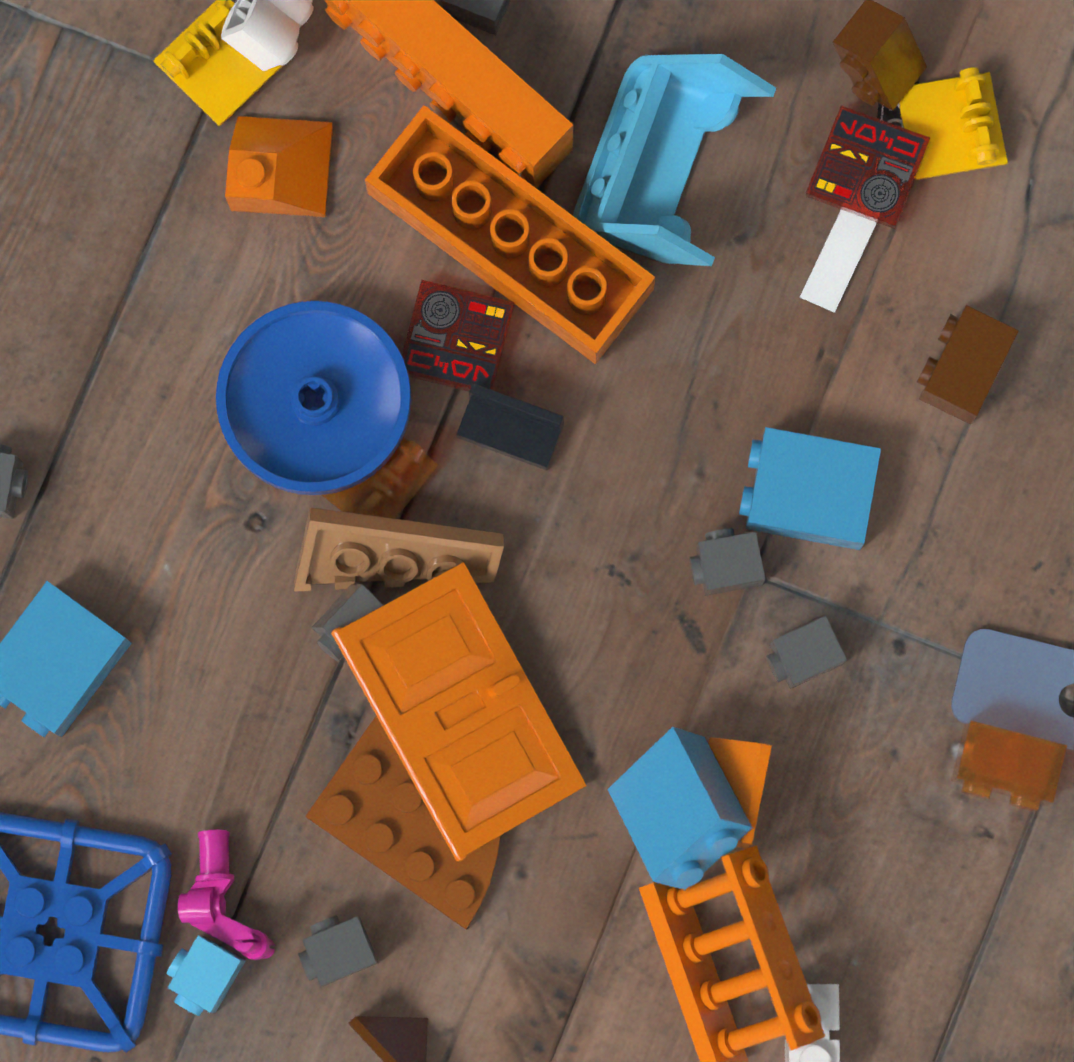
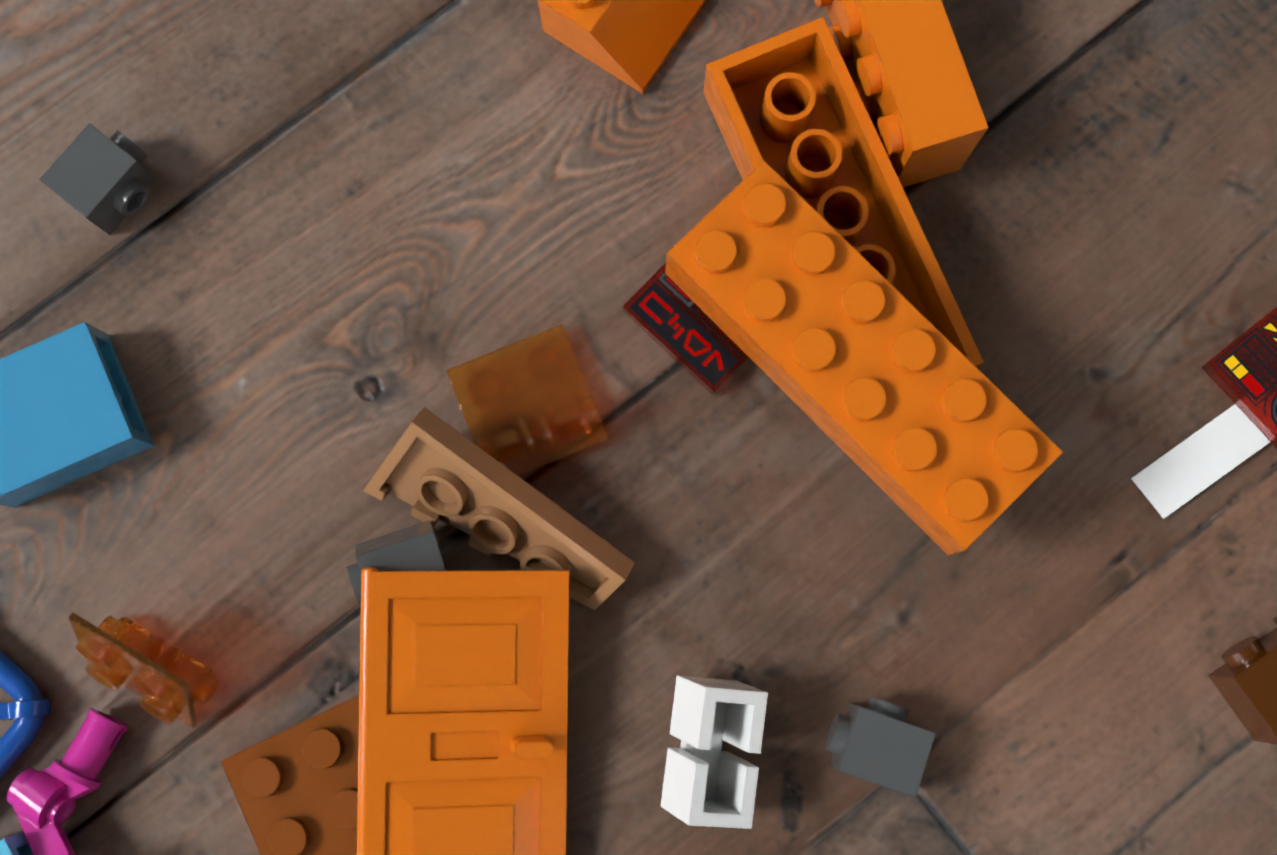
camera: 30 degrees right, 0 degrees up
(219, 785) = (125, 655): none -> clear orange hinge
(313, 398) = (507, 283): blue dish -> none
(510, 427) = (715, 442): black panel -> none
(571, 321) = (859, 360): none -> orange brick
(604, 607) = (699, 779): none -> white piece
(652, 147) = (1064, 204): medium azure windscreen -> none
(810, 488) = (1029, 714): dark azure brick -> none

